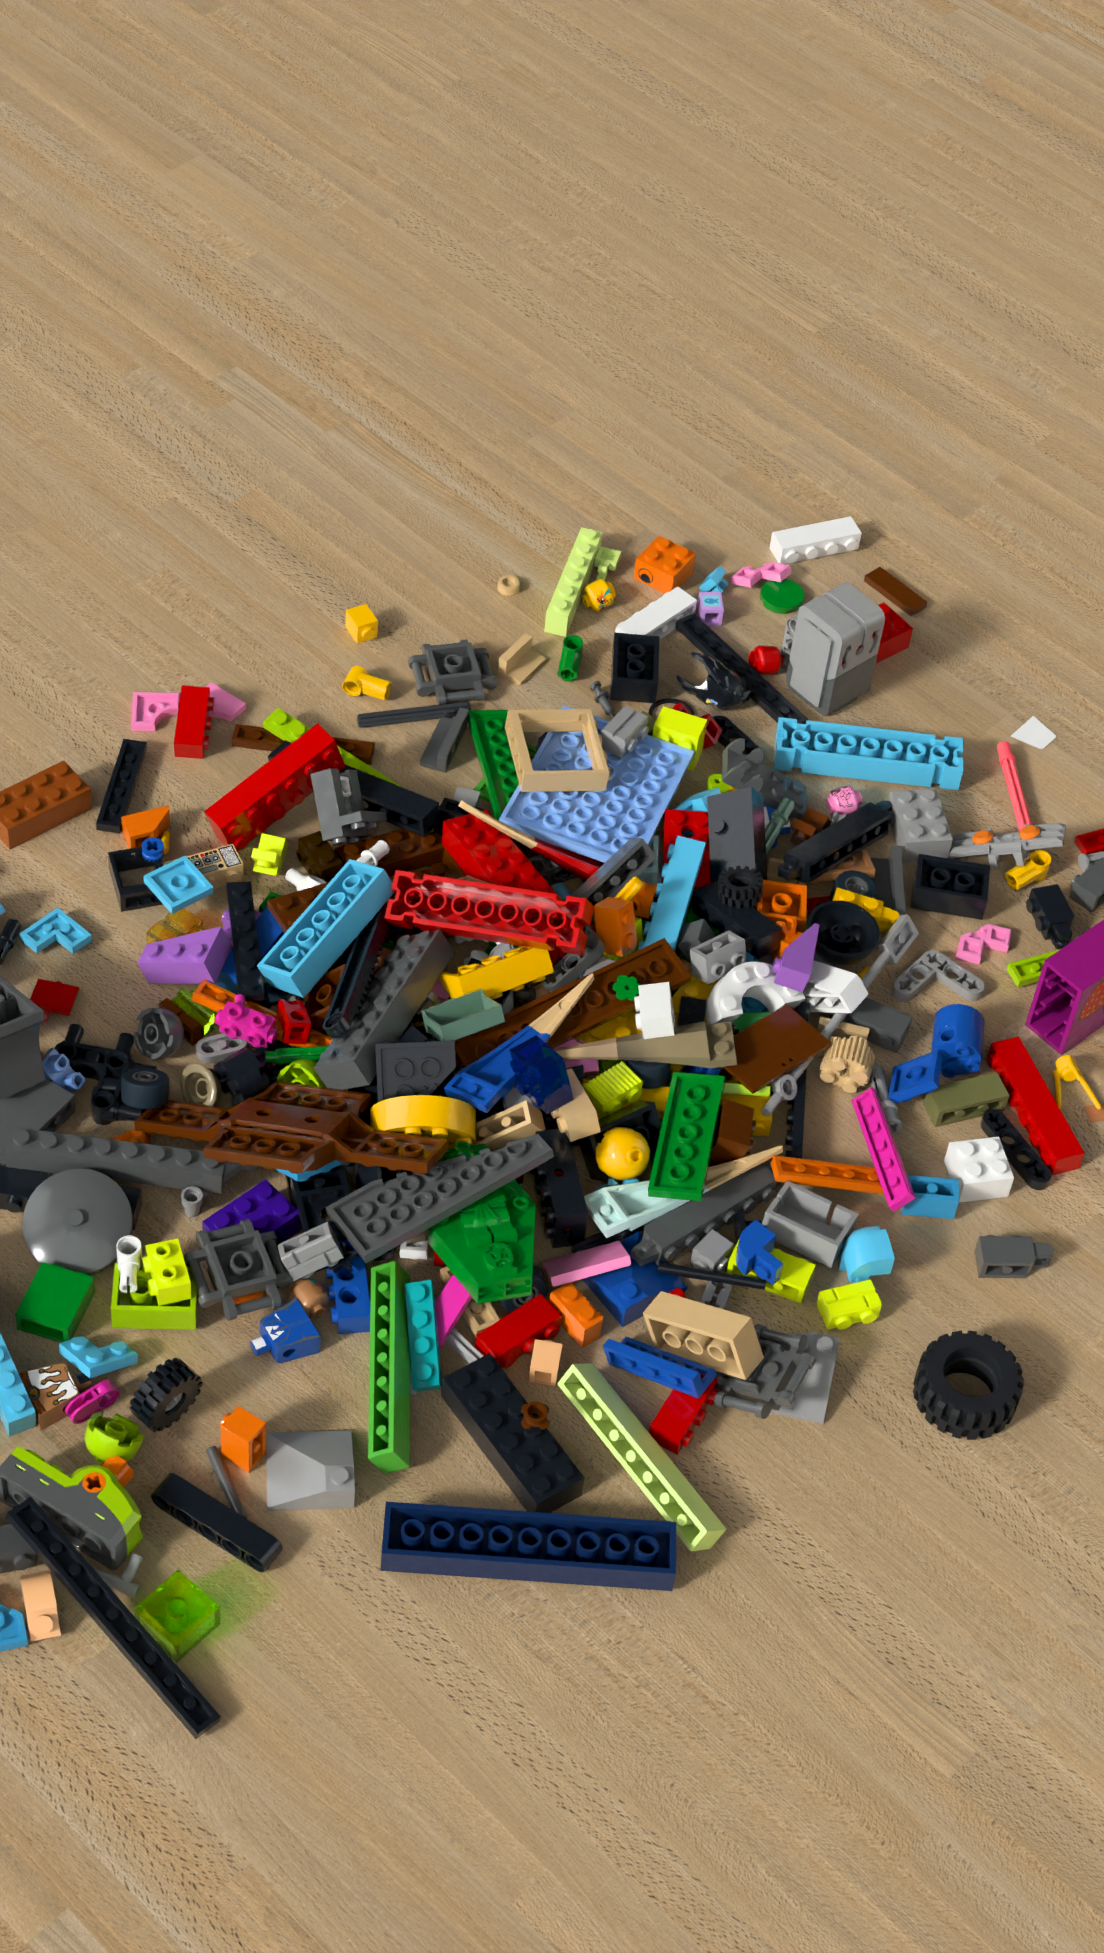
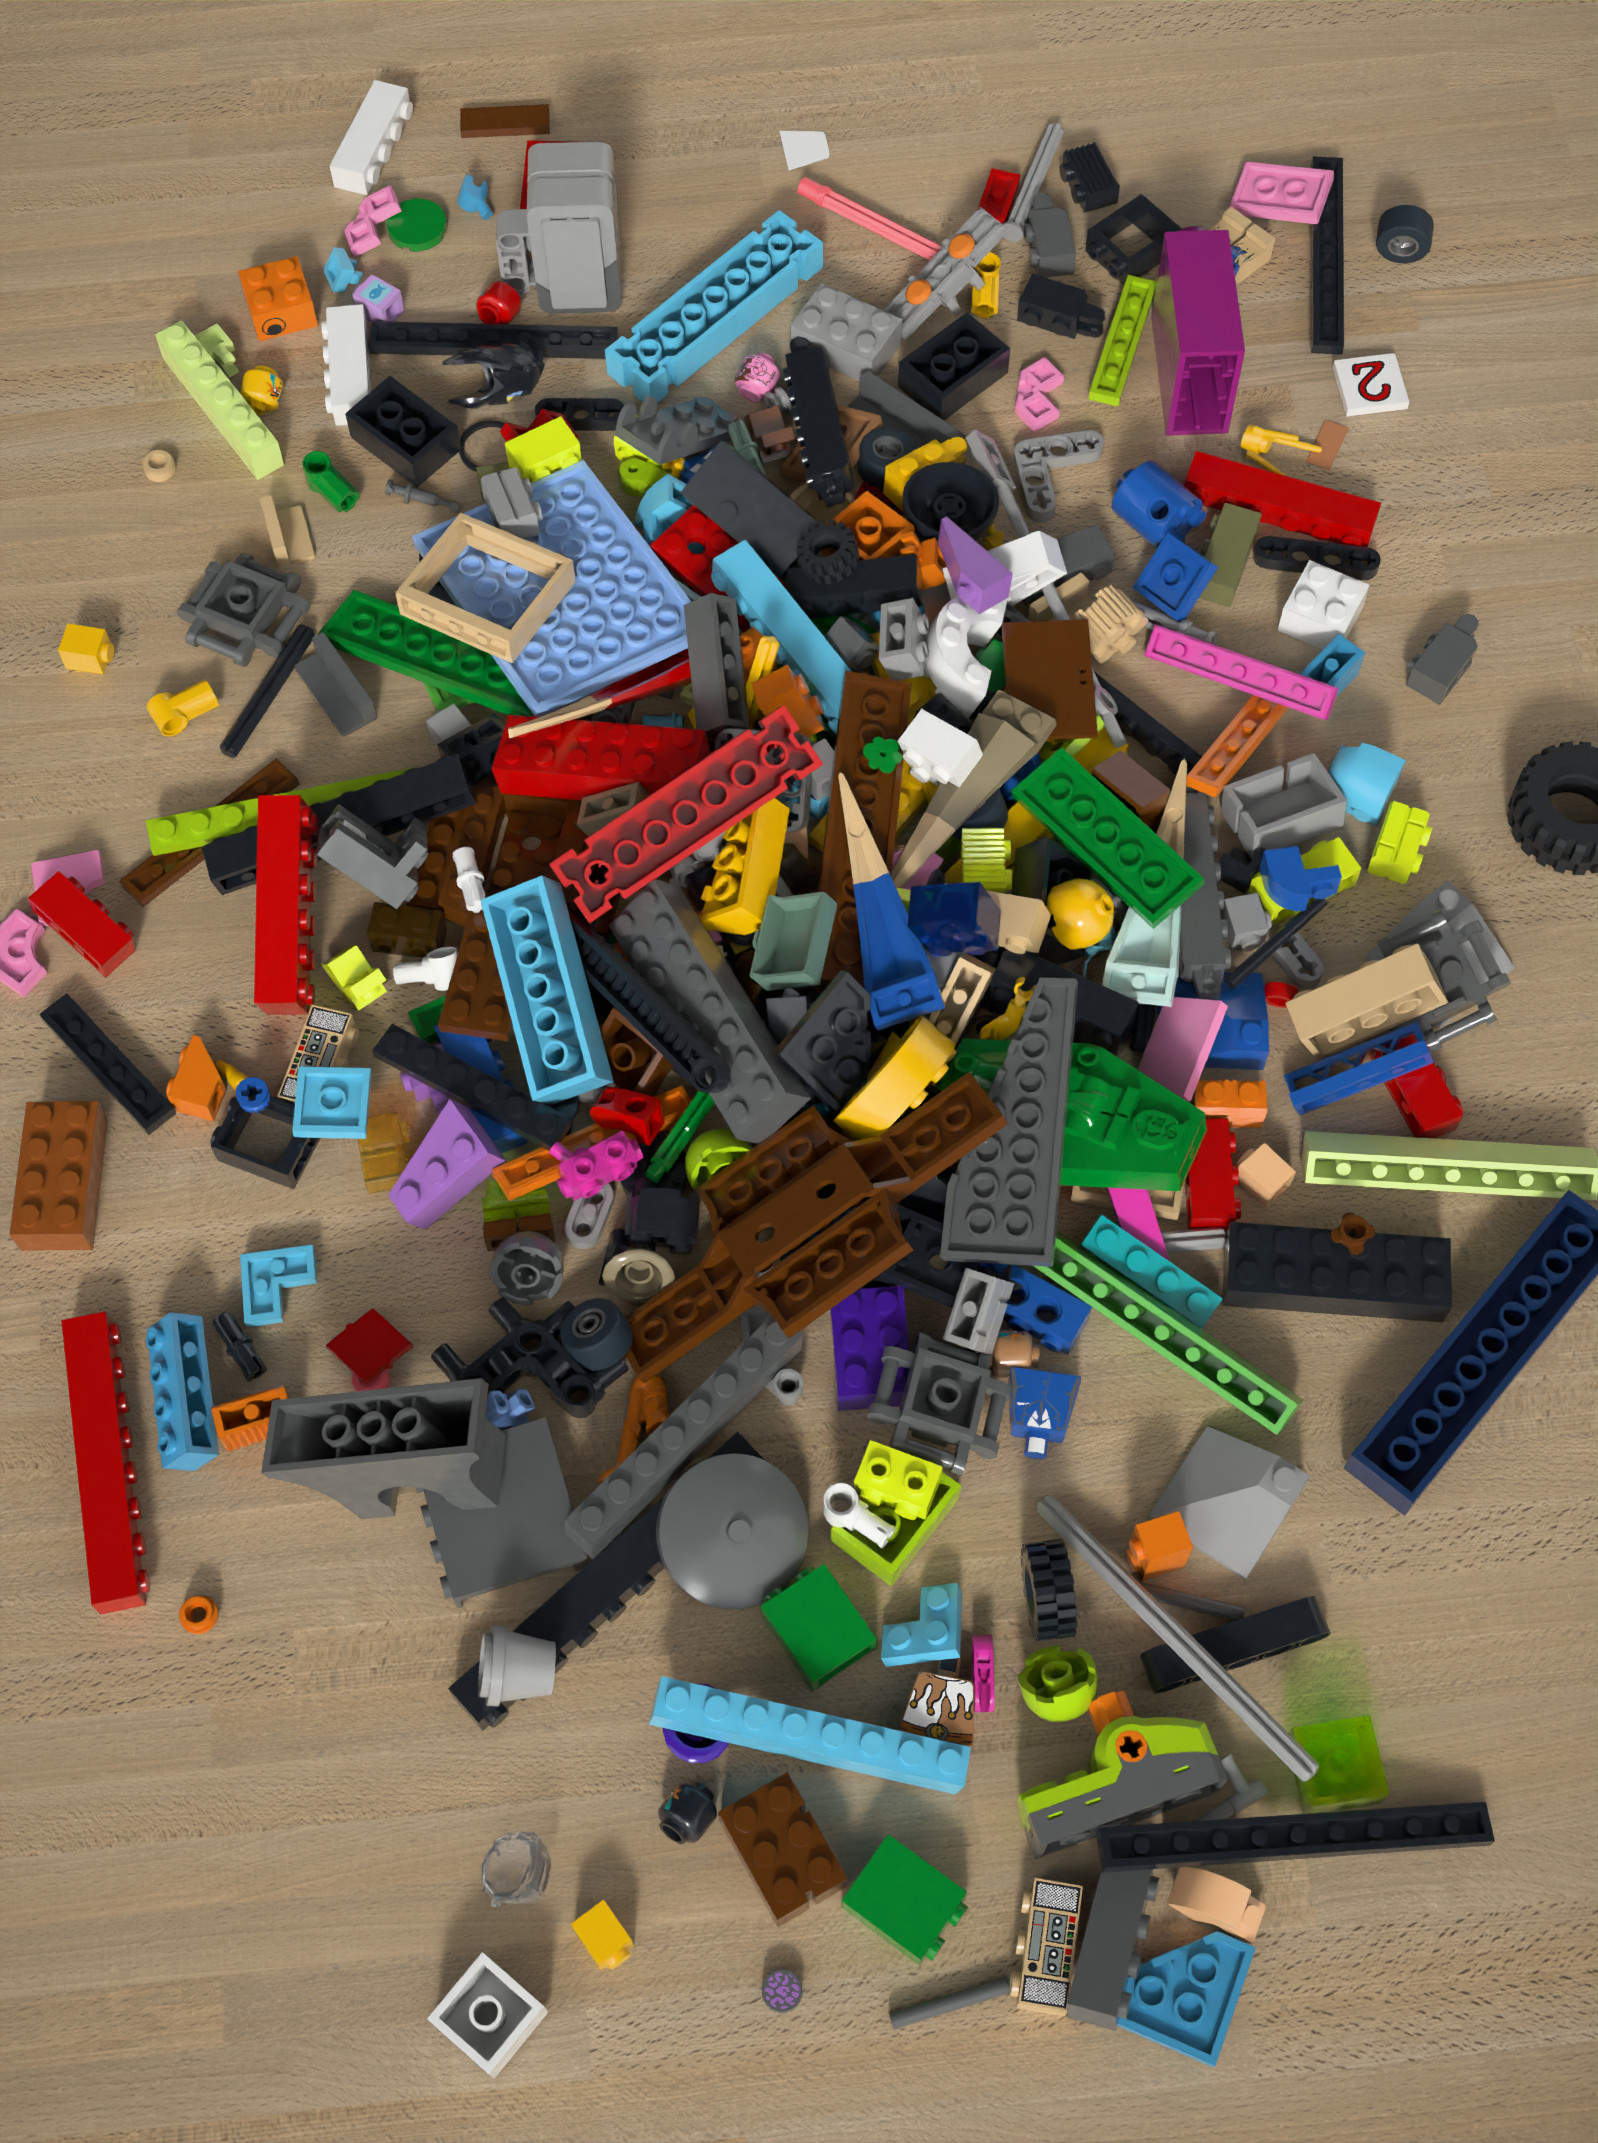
camera: 45 degrees left, 15 degrees up
(189, 1480) = (1179, 1639): none -> light grey axle

